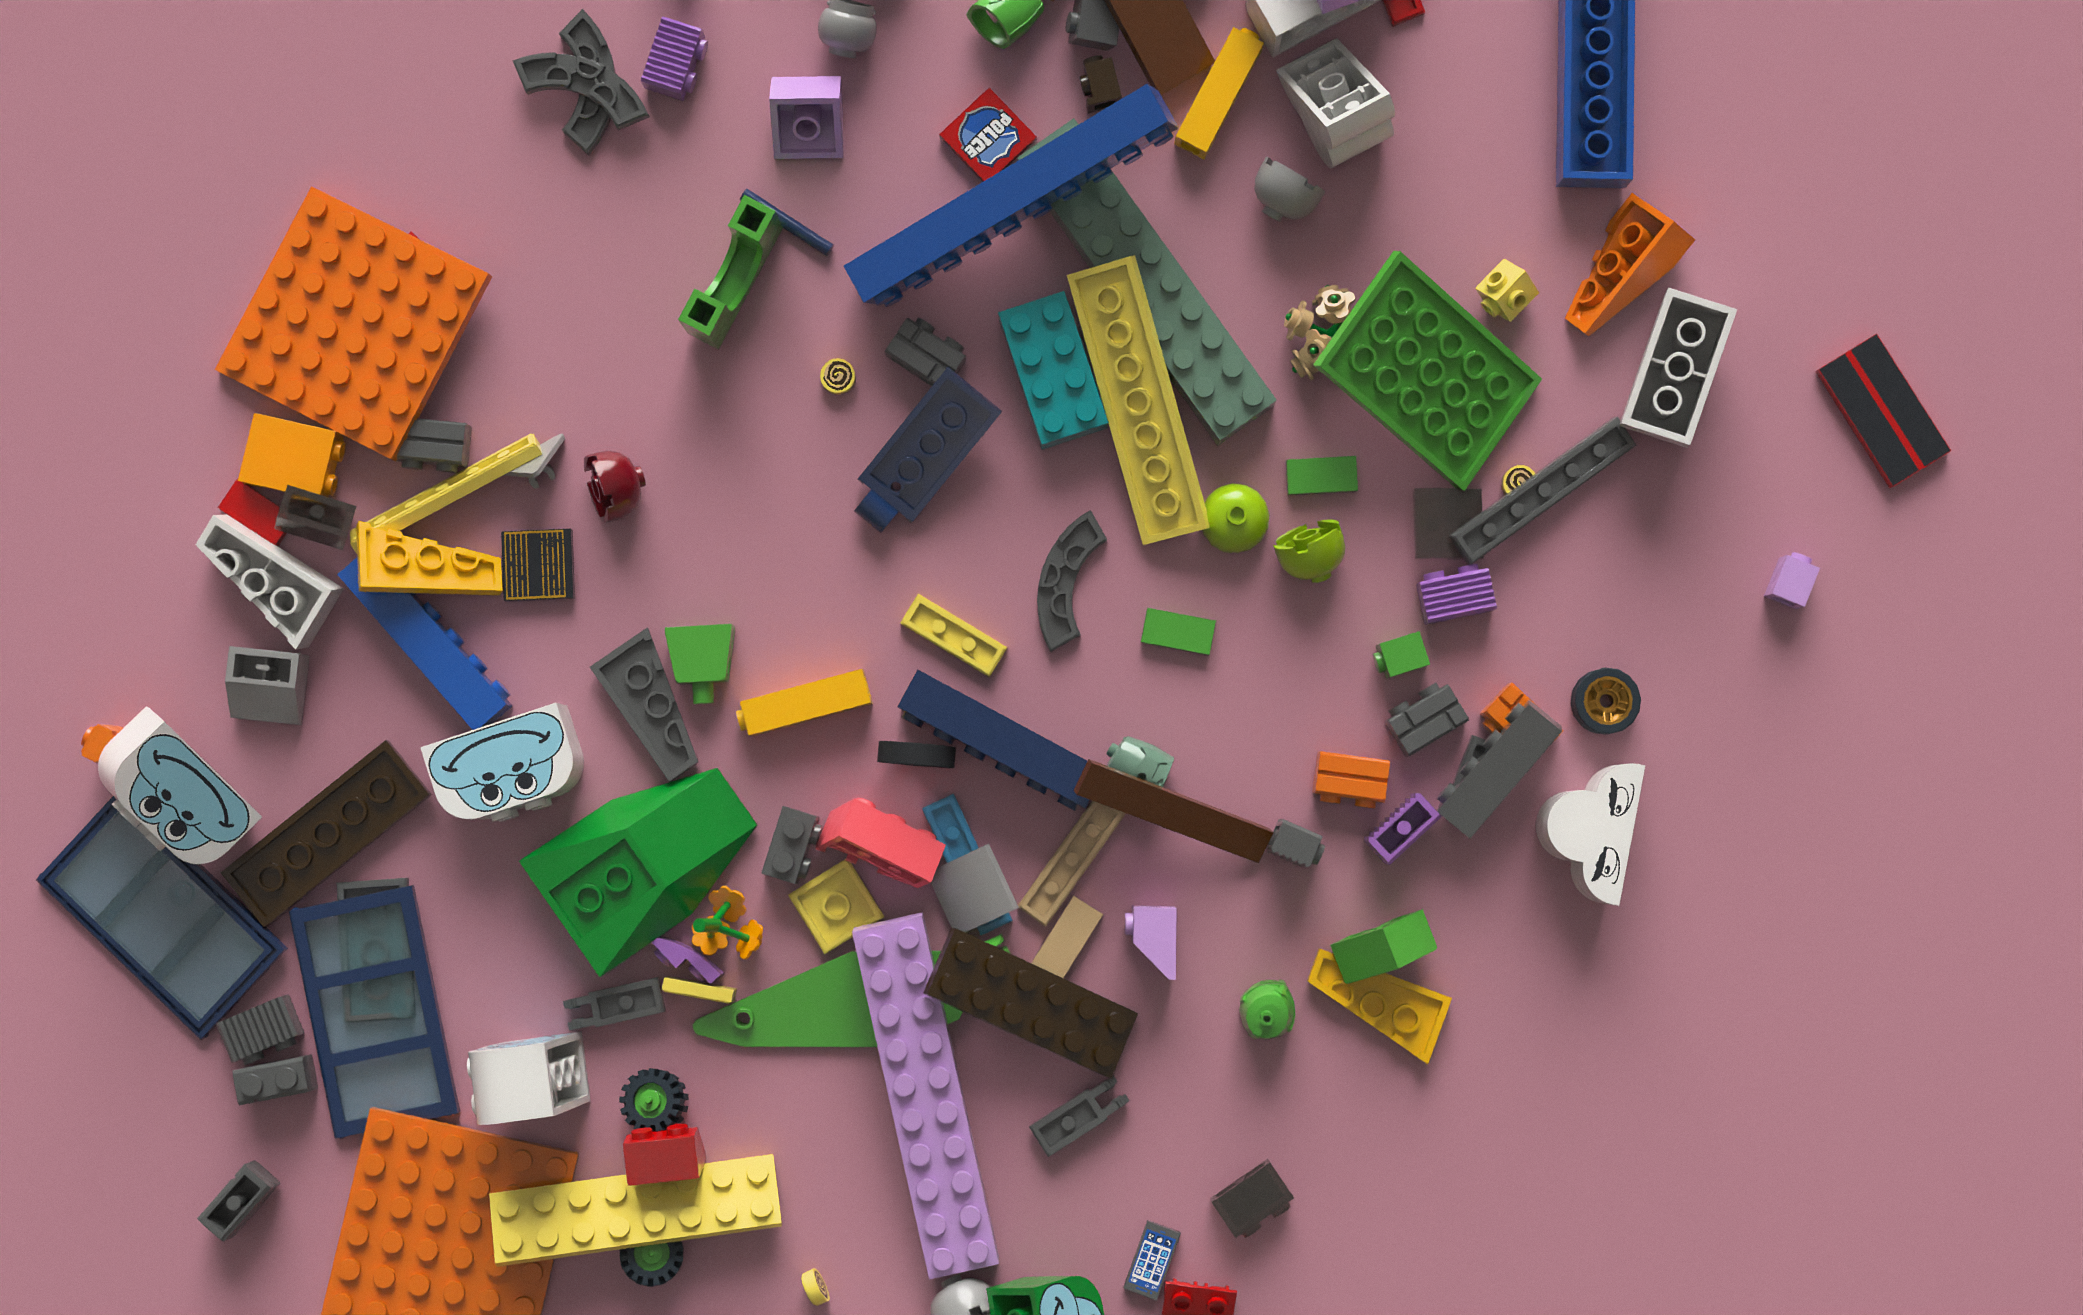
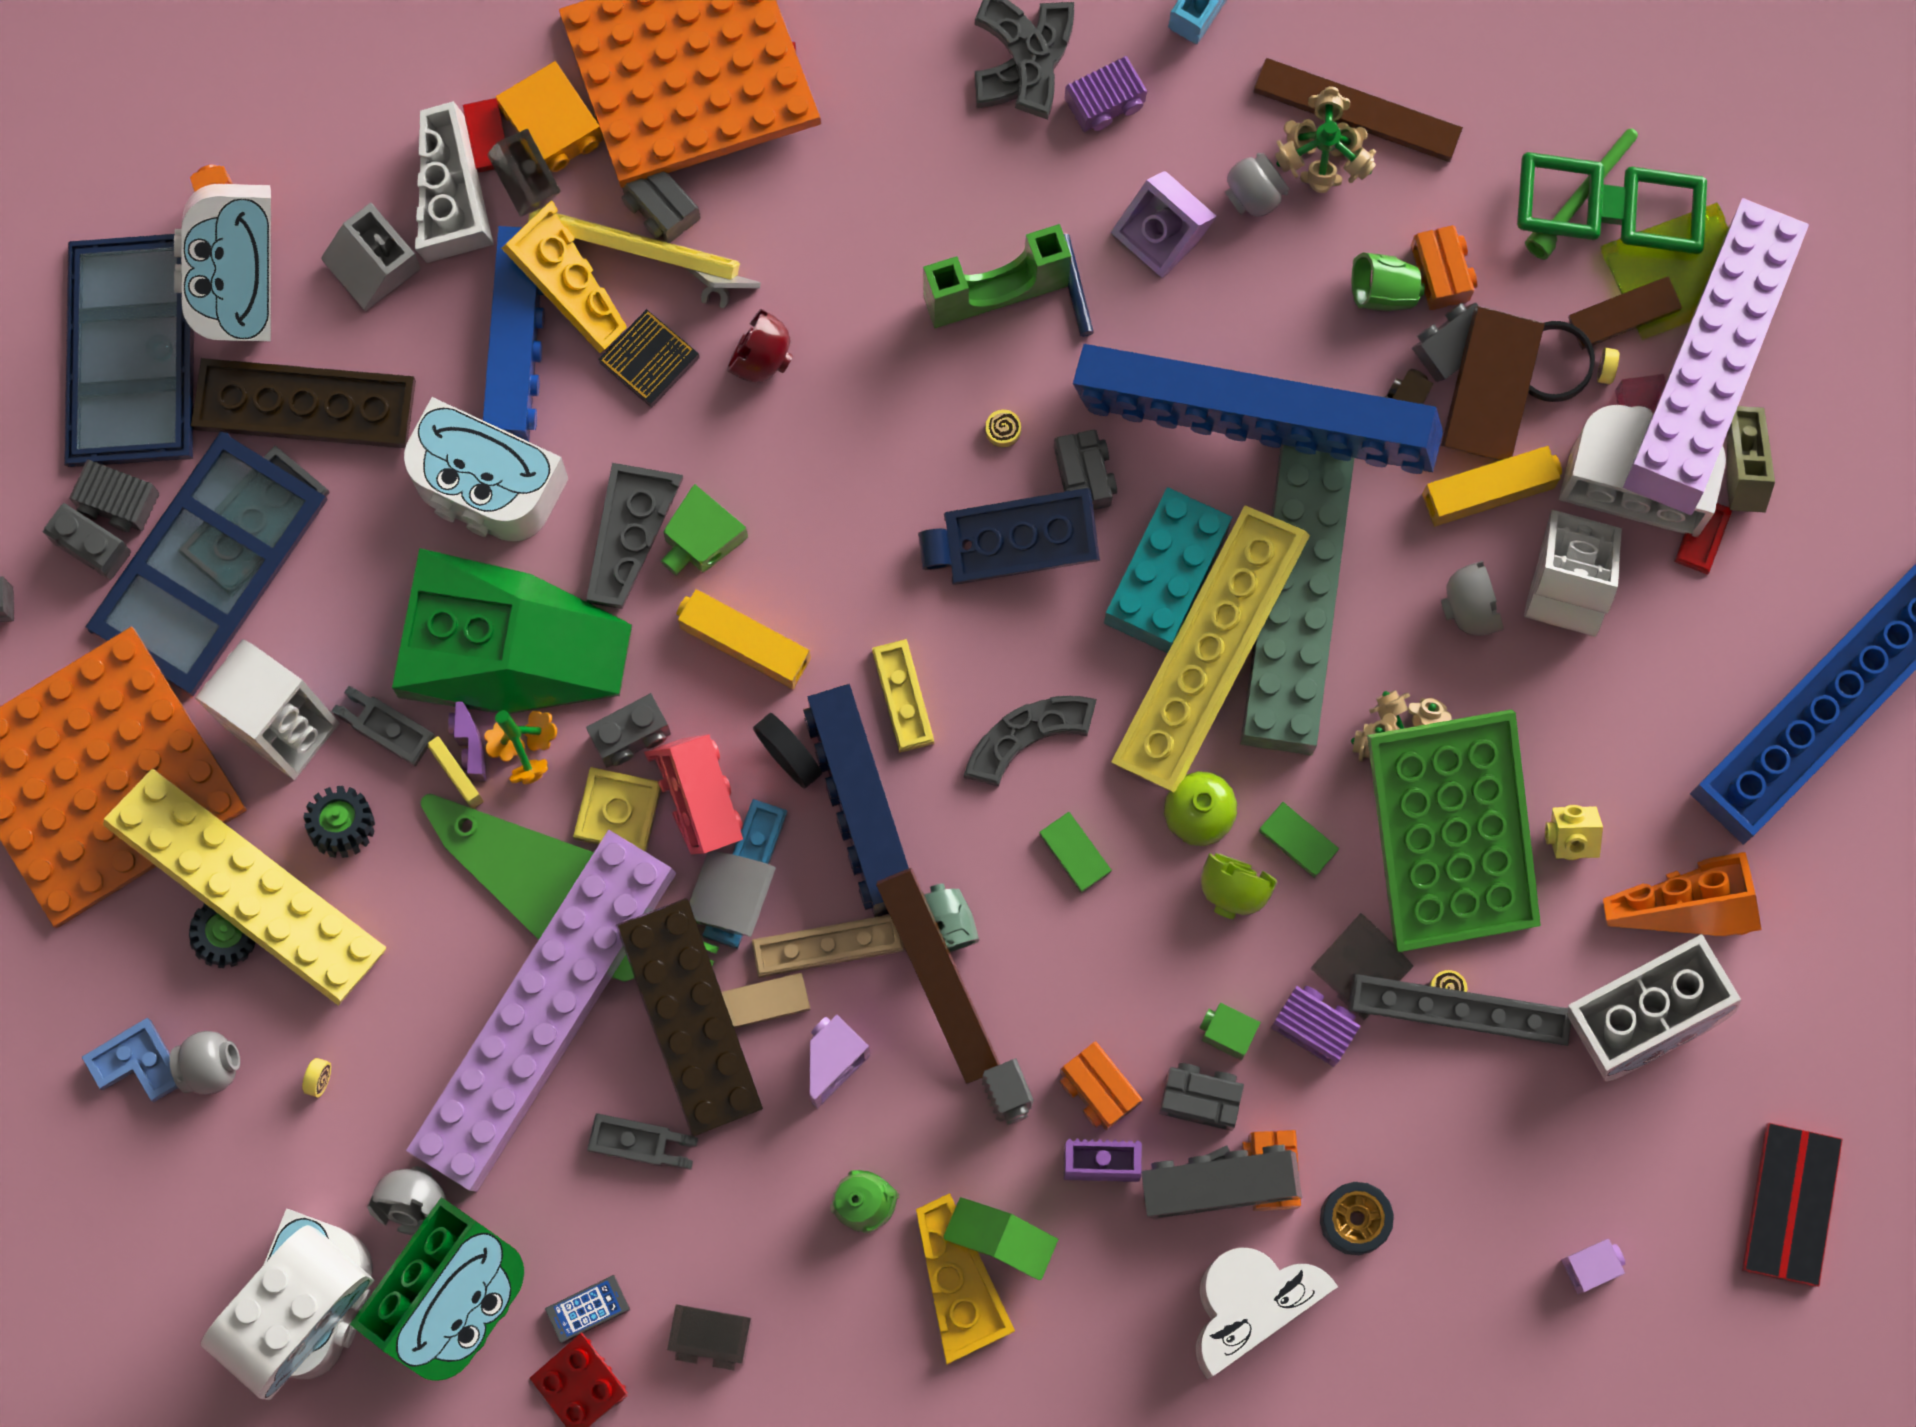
camera: 40 degrees right, 10 degrees down
(663, 1154) = (306, 862): red slope -> none
(988, 136) = (1286, 352): tile -> none

